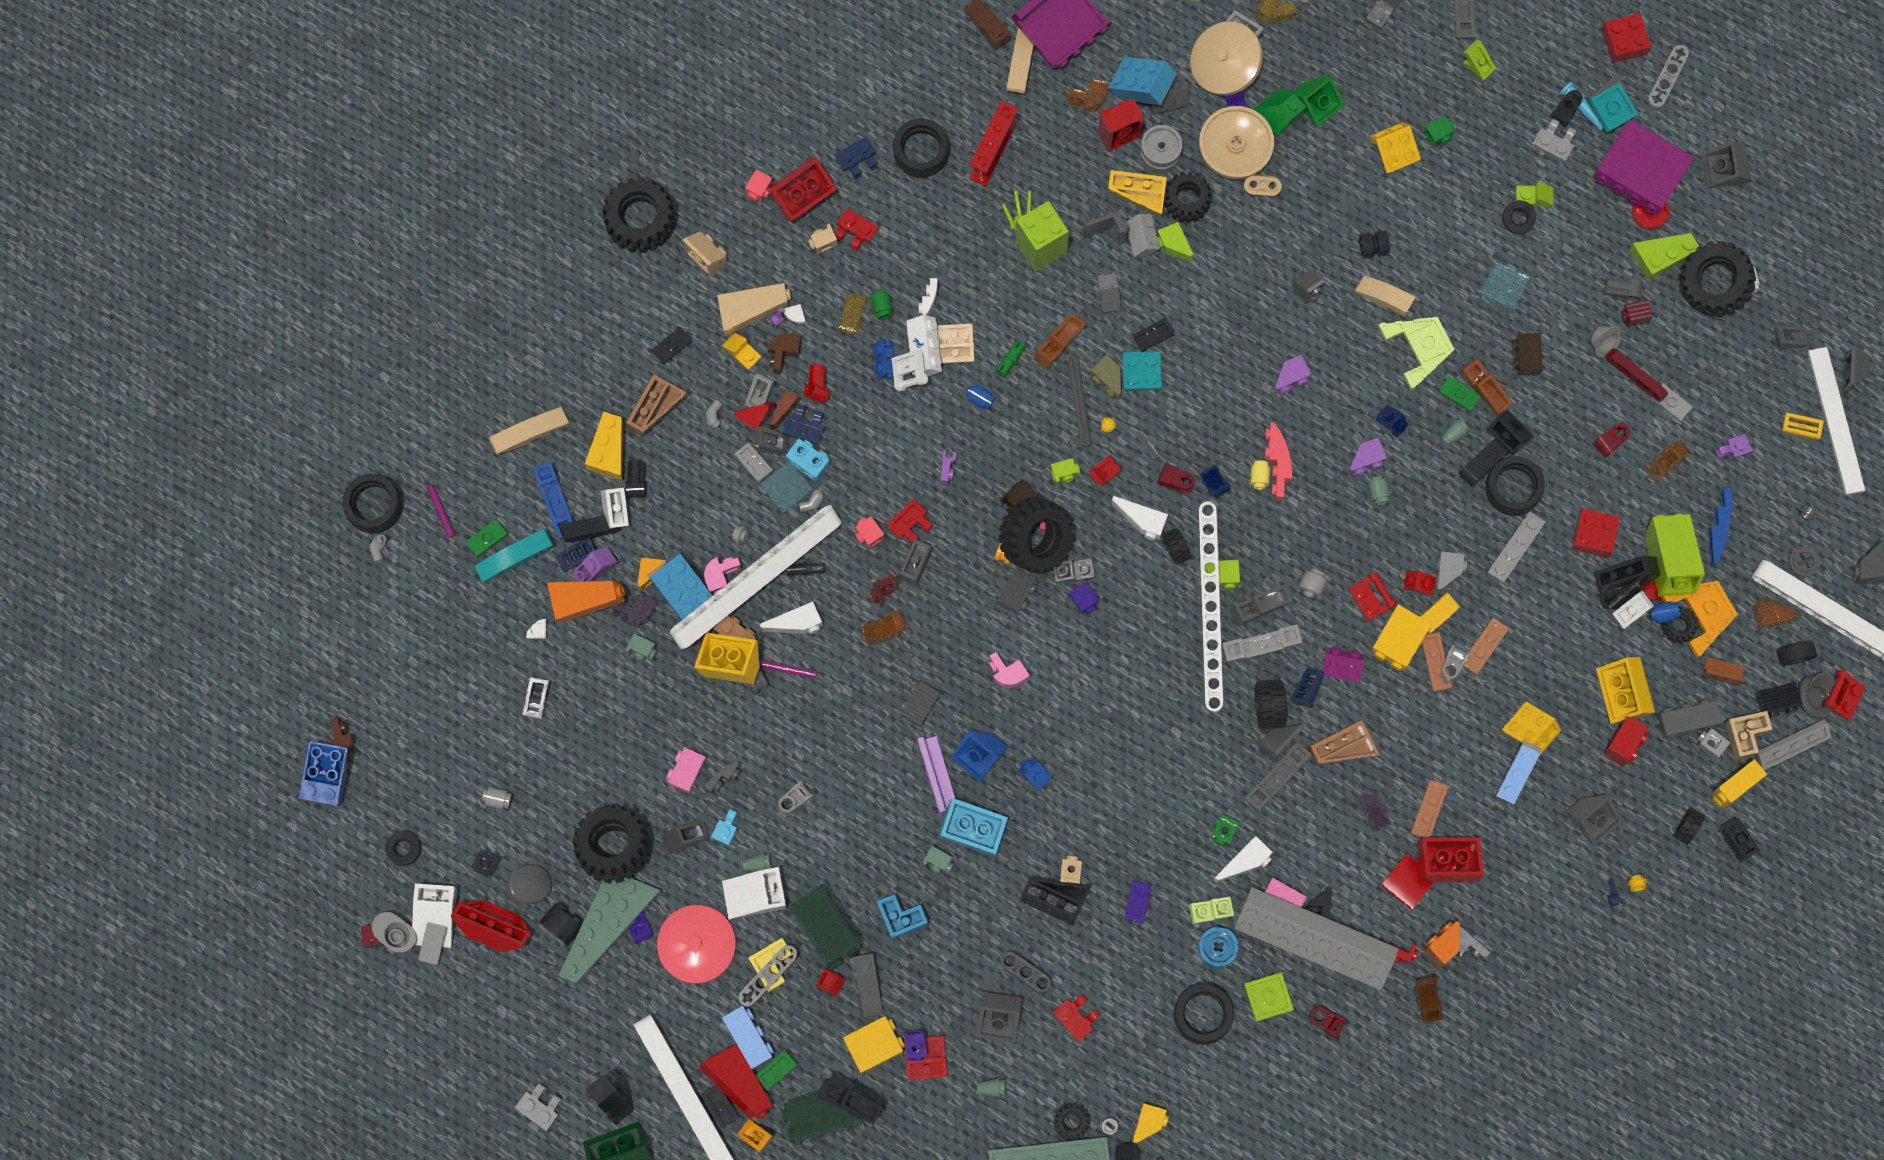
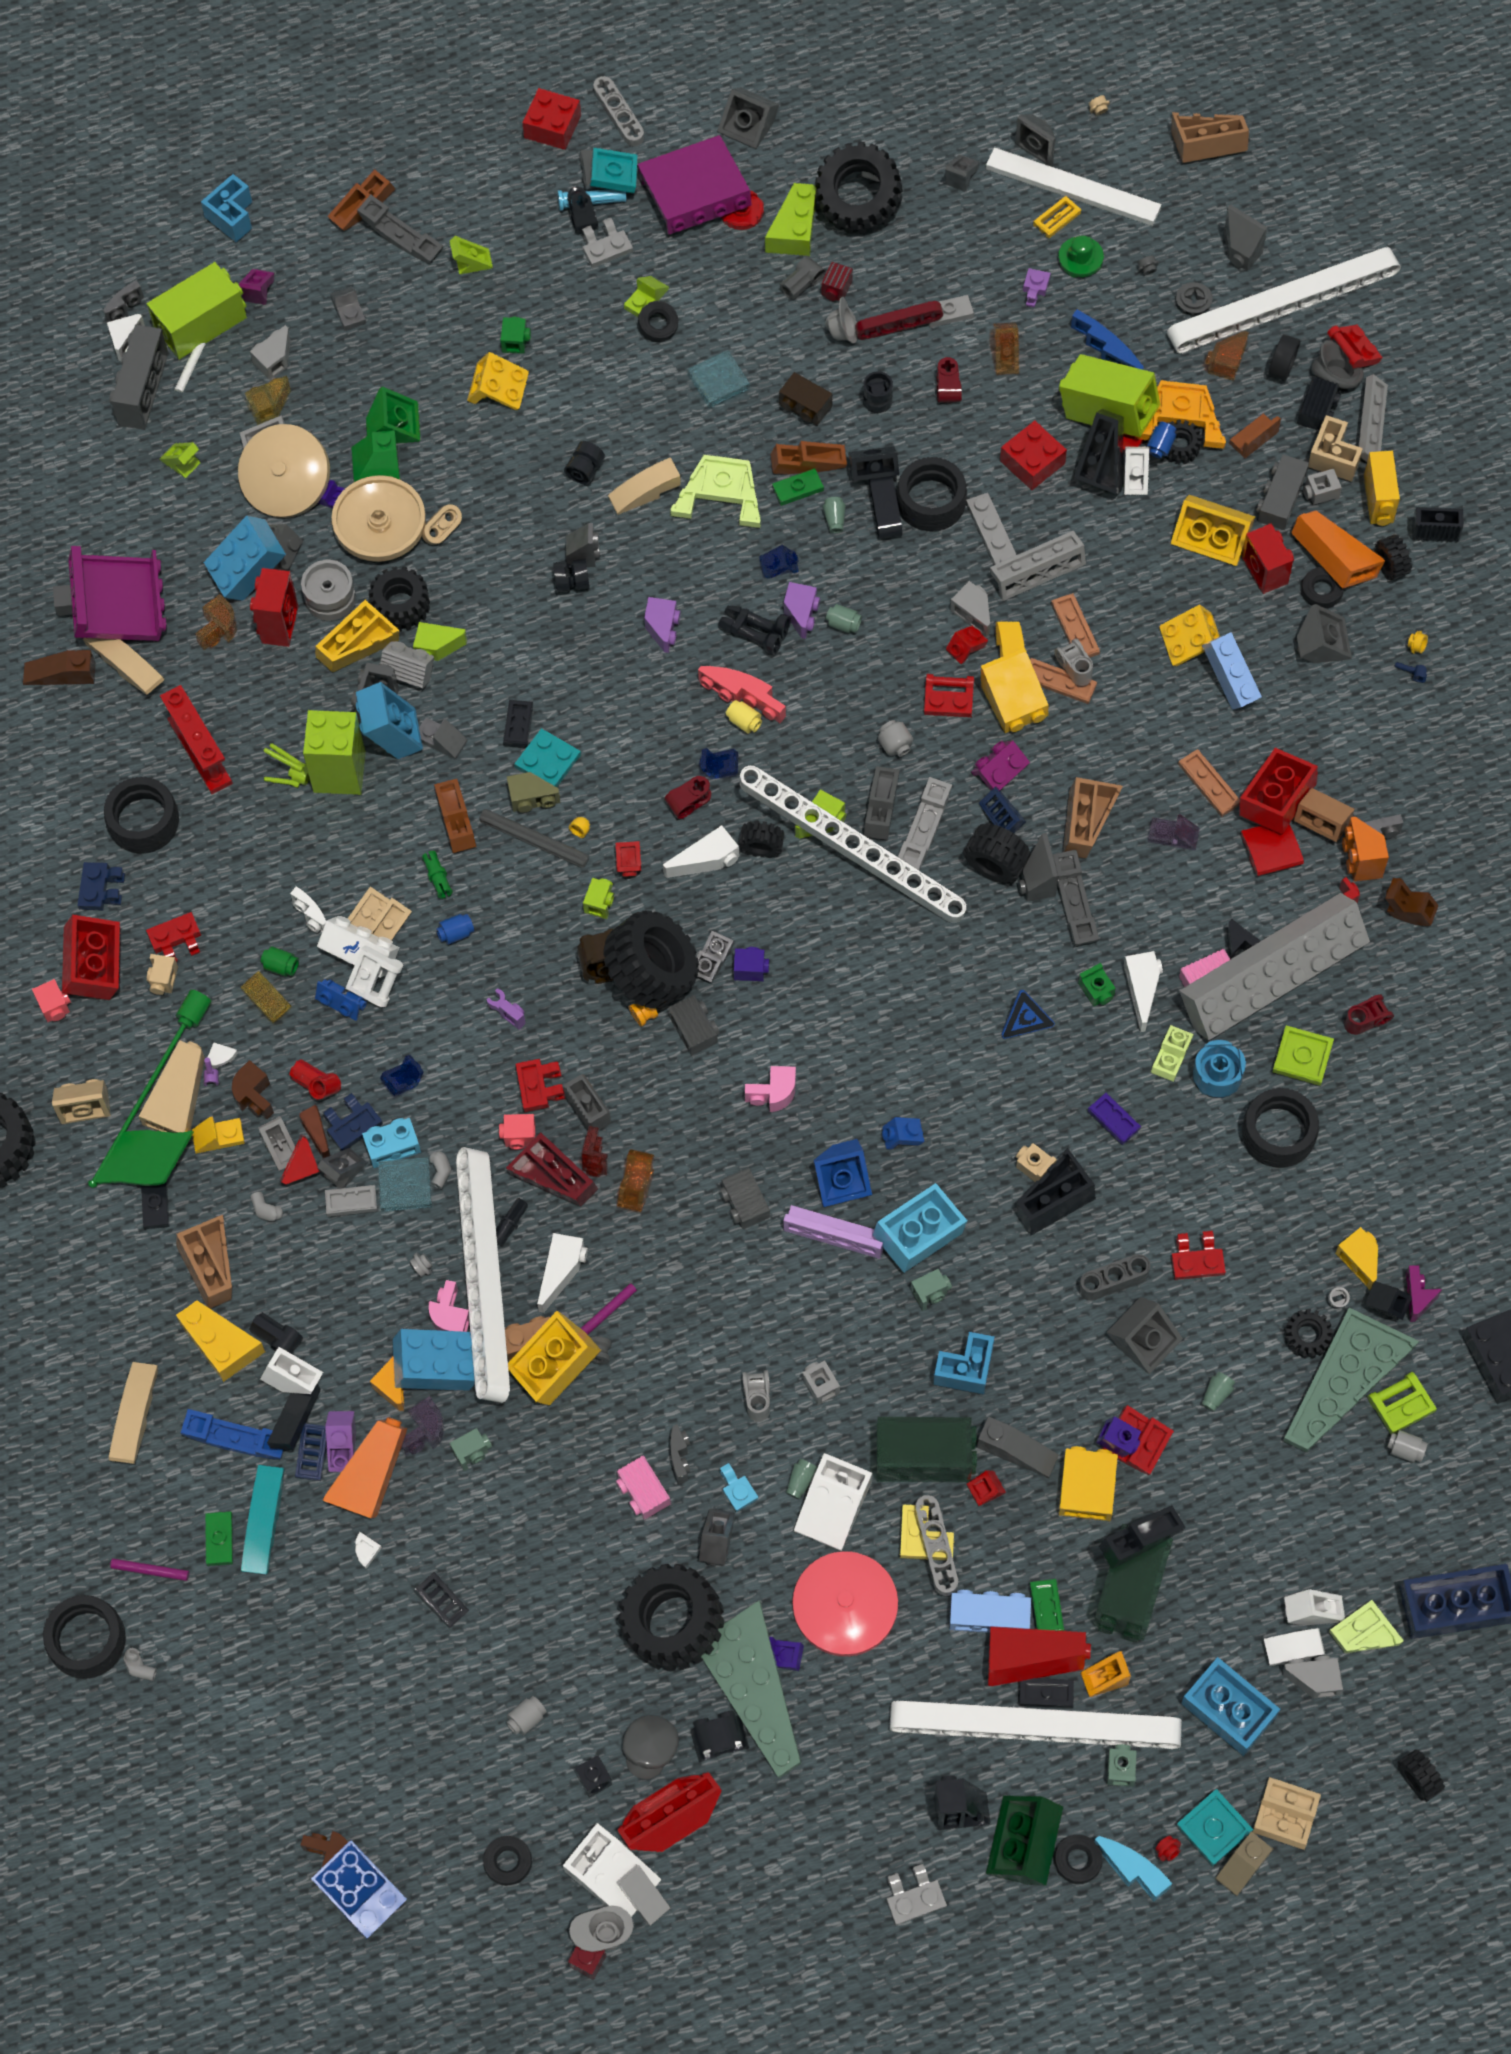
camera: 55 degrees left, 10 degrees down
(696, 318) = (150, 1155): none -> green flag
(821, 836) = (821, 1371): none -> light grey brick
(855, 571) = (552, 1171): none -> dark red wedge
(856, 435) = (403, 1076): none -> clear blue bracket
(1089, 254) = (388, 720): none -> dark azure brick
(1169, 799) = (1025, 1017): none -> black piece
(1288, 298) = (579, 571): none -> black wheel
(1334, 426) = (742, 617): none -> black piece
(1455, 901) = (1329, 814): none -> medium nougat brick
(1512, 590) = (1038, 561): none -> light grey fence
(1568, 398) = (877, 392): none -> black wheel
(1645, 787) = (1312, 597): none -> black tyre
(1668, 784) = (1336, 550): none -> orange slope
(1781, 463) = (1081, 256): none -> green plate

